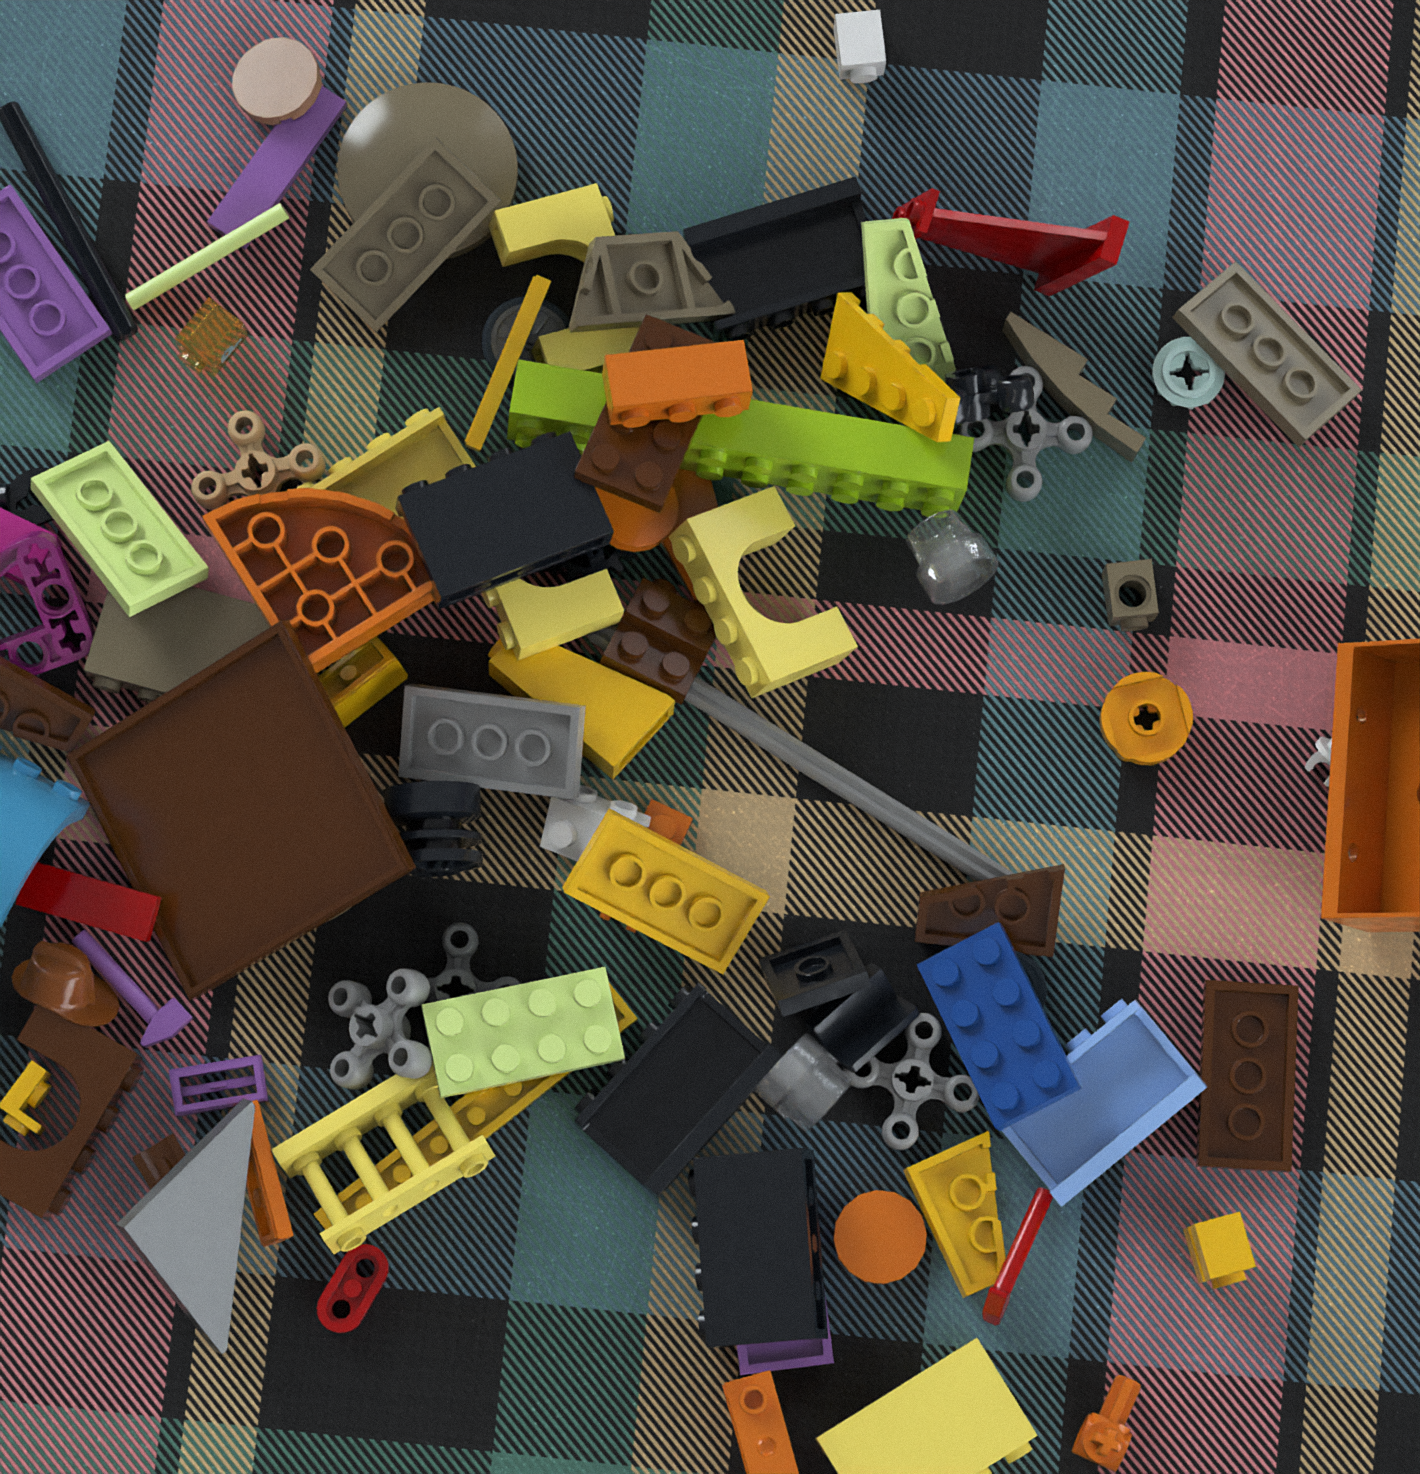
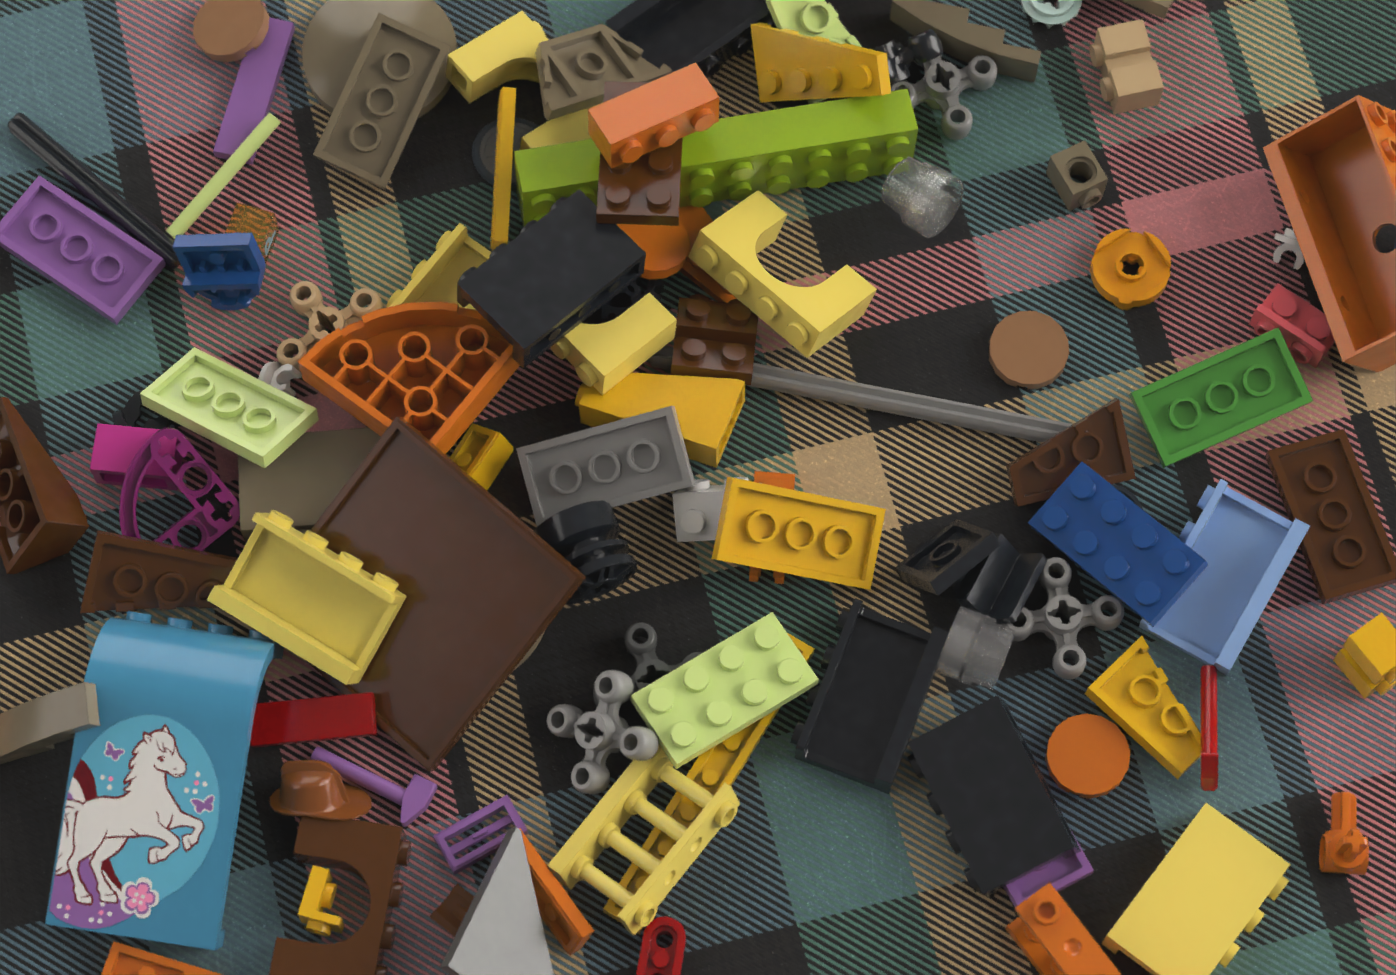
camera: 15 degrees left, 10 degrees down
(126, 774) = (309, 597): none -> light yellow panel
(168, 366) = (221, 267): none -> blue slope
(184, 510) = (279, 376): none -> white plate
(998, 769) = (1028, 349): none -> medium nougat tile
(1180, 903) = (1220, 397): none -> bright green plate
(1237, 485) = (1126, 67): none -> tan brick
(1295, 845) = (1300, 324): none -> coral bracket

